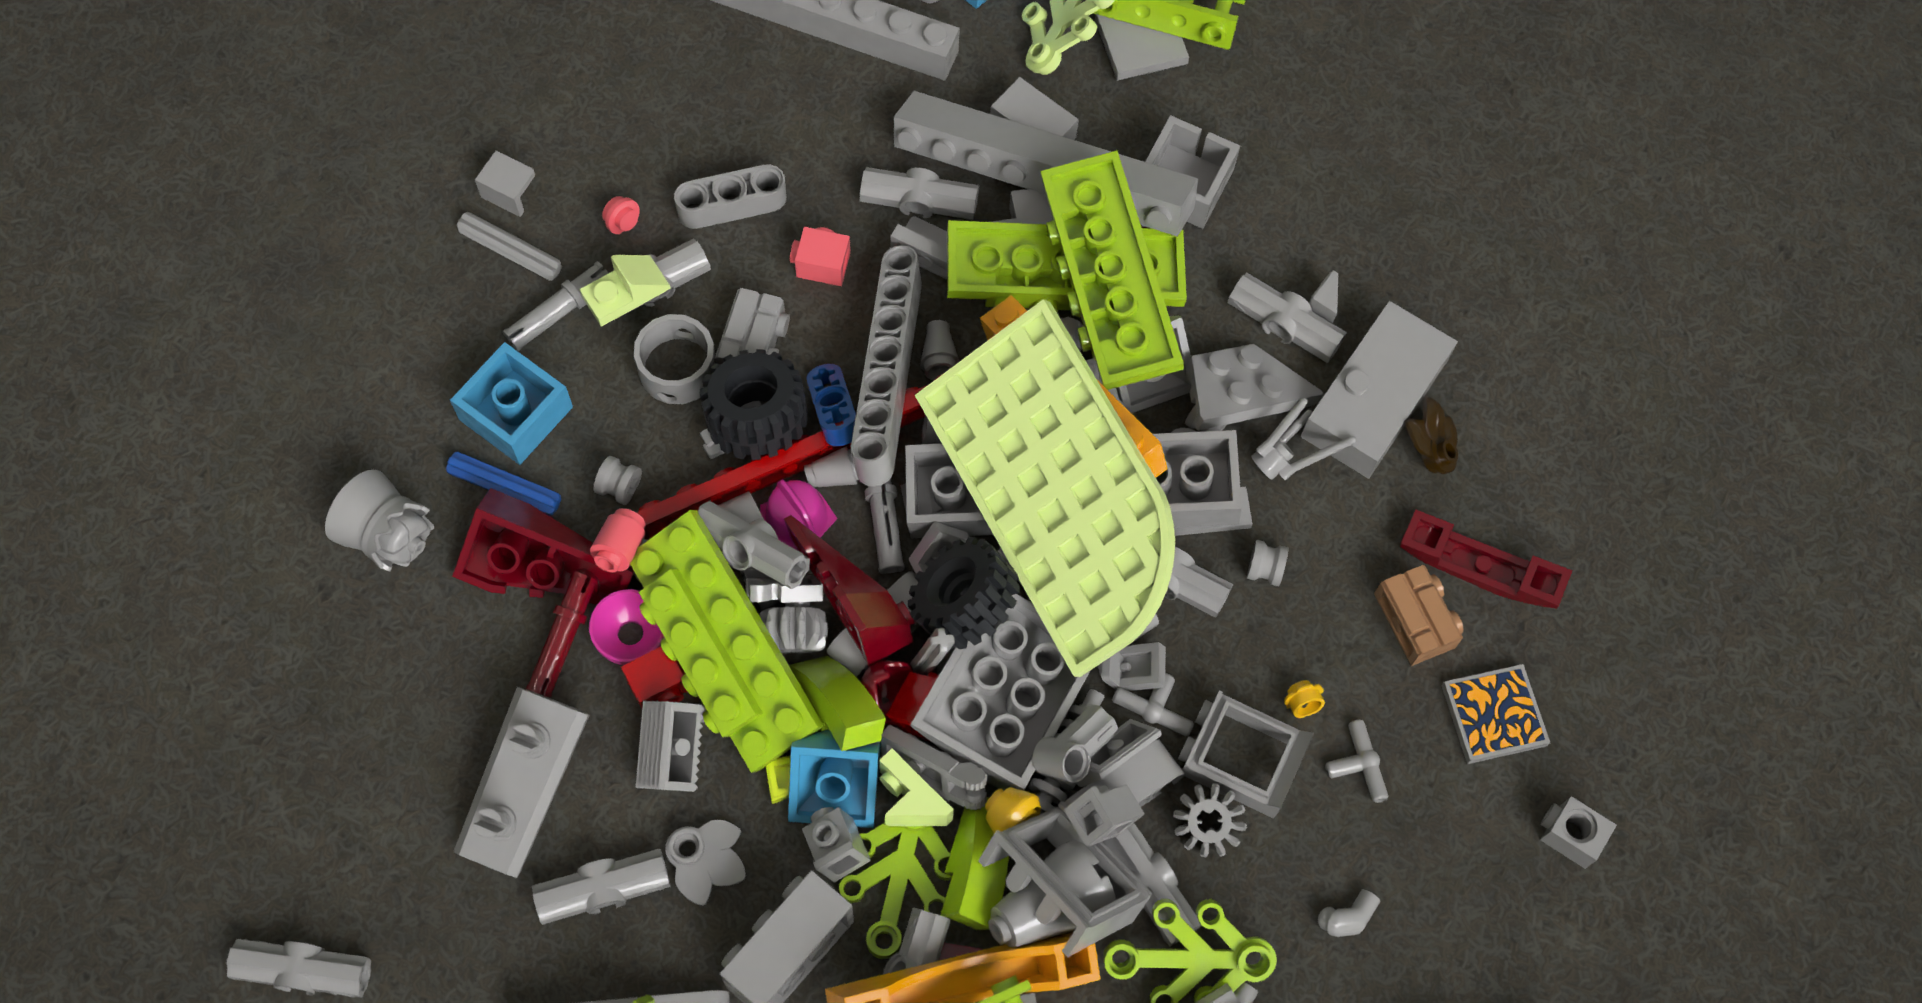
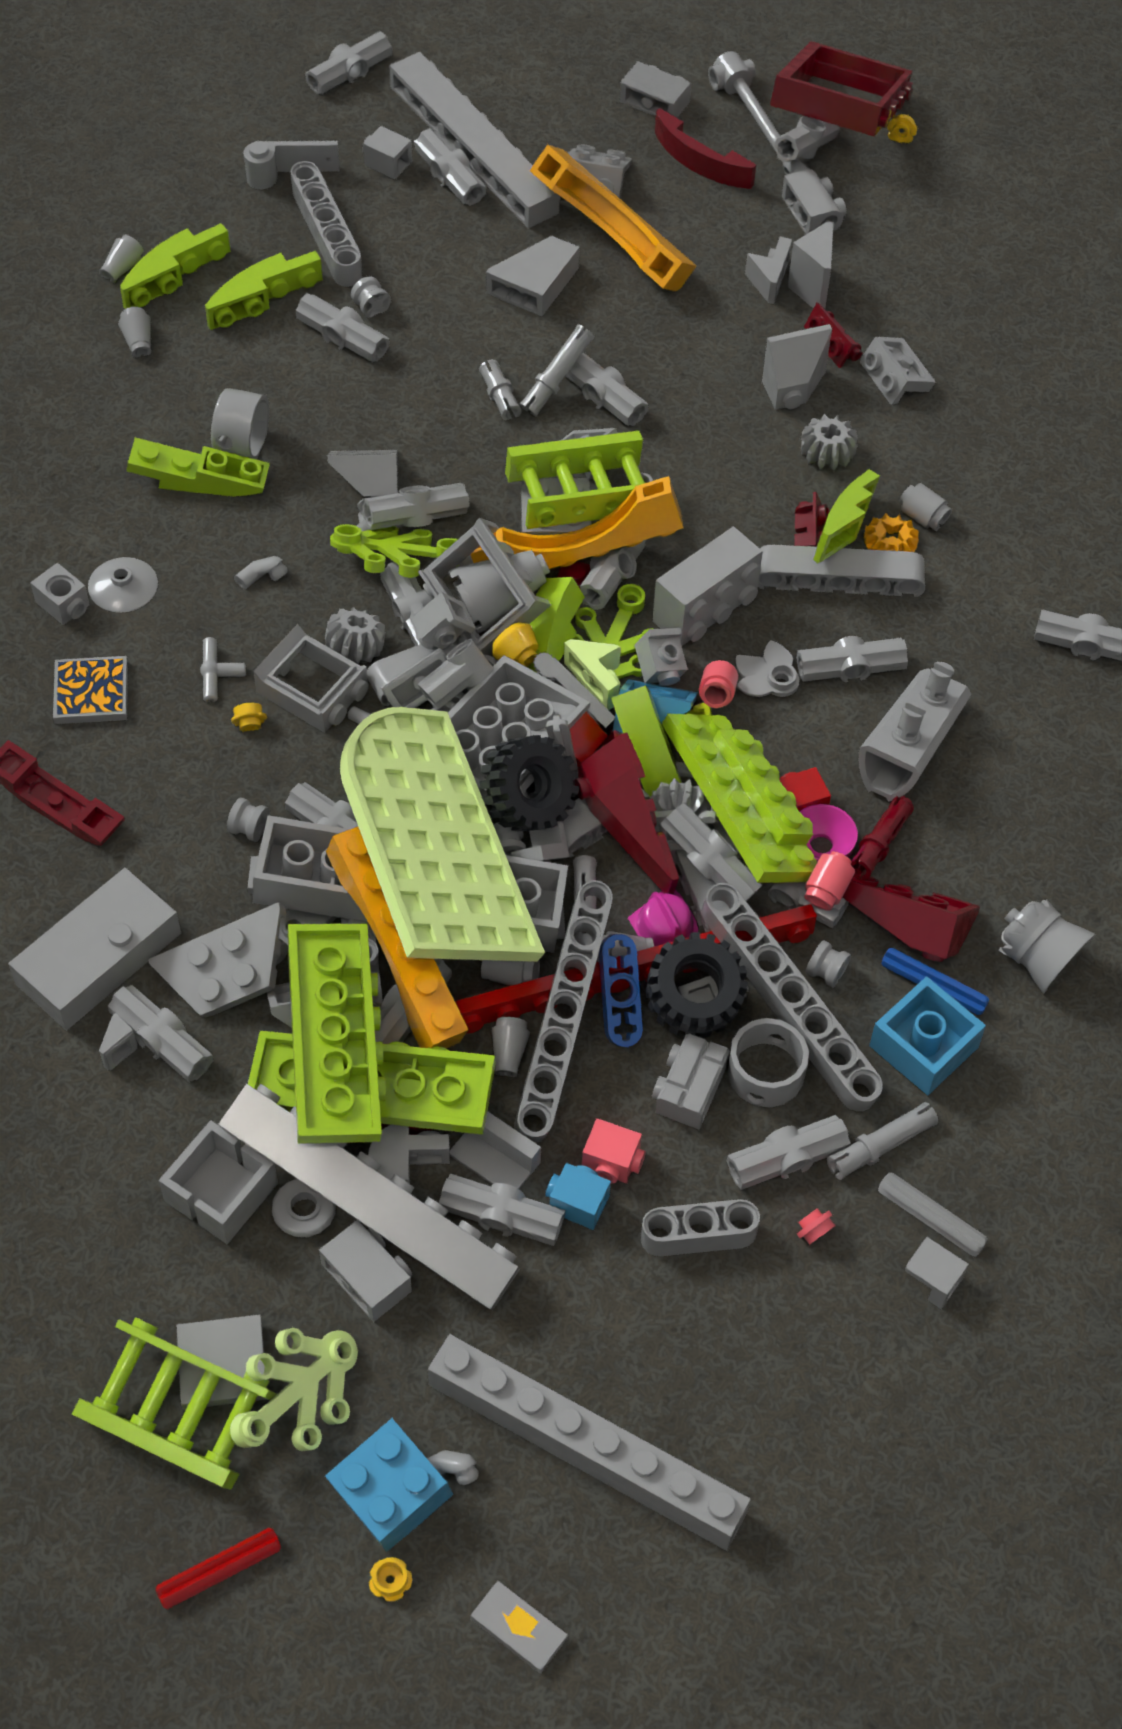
camera: 170 degrees left, 10 degrees down
(627, 287) = (813, 1121): yellowish green slope -> none
(640, 398) = (789, 978): none -> light grey beam
(669, 746) = (792, 732): light grey brick -> none
(762, 814) = (718, 684): none -> coral brick
(849, 210) = (579, 1194): none -> dark azure brick
(1274, 454) = (210, 904): light grey plant -> none
(1419, 614) = (128, 761): medium nougat brick -> none
(1434, 437) = (58, 892): dark brown plate -> none
(1495, 887) = (125, 593): none -> light grey dish

